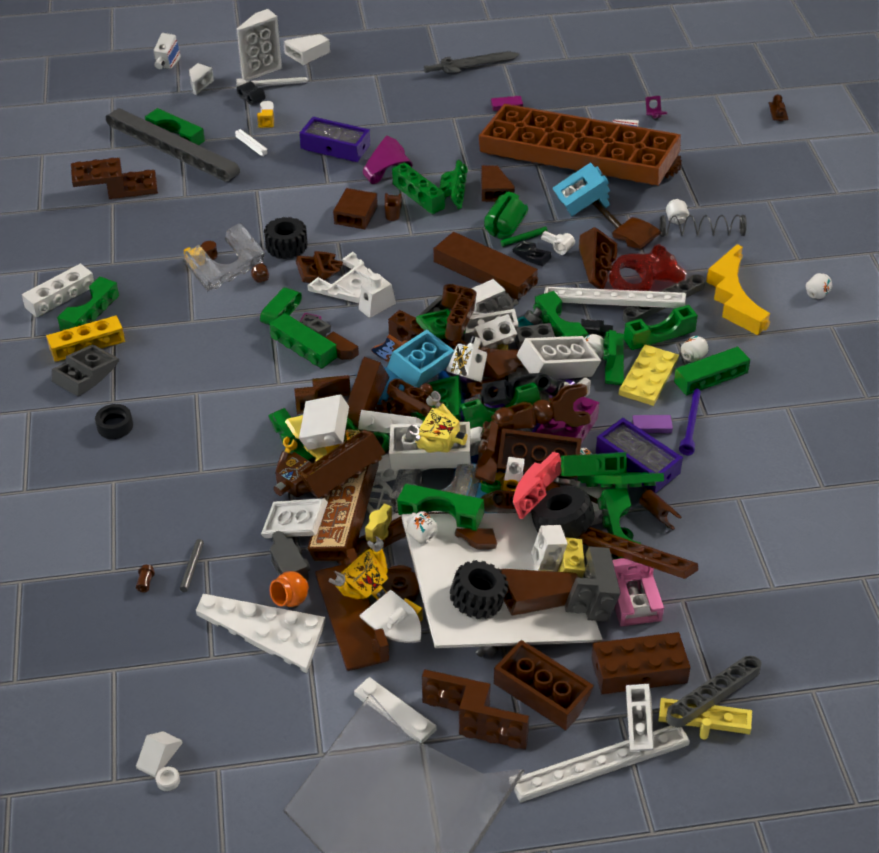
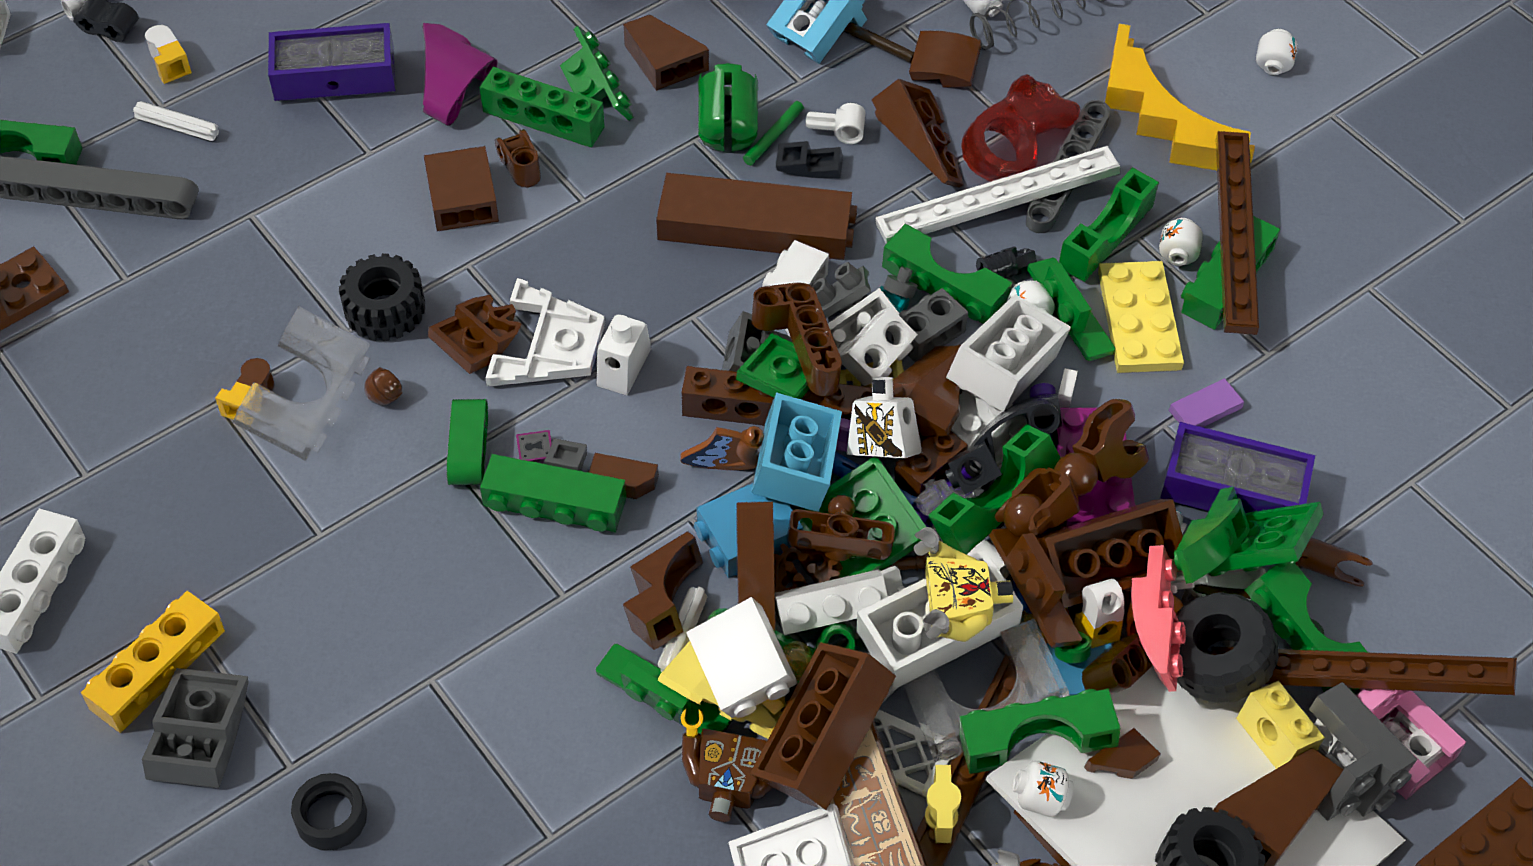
camera: 30 degrees left, 10 degrees up
(103, 294) = (109, 625): green arch -> none
(549, 548) = (1246, 723): white brick -> none
(687, 445) = (1284, 421): dark purple piece -> none
(723, 352) = (1236, 233): none -> reddish brown tile

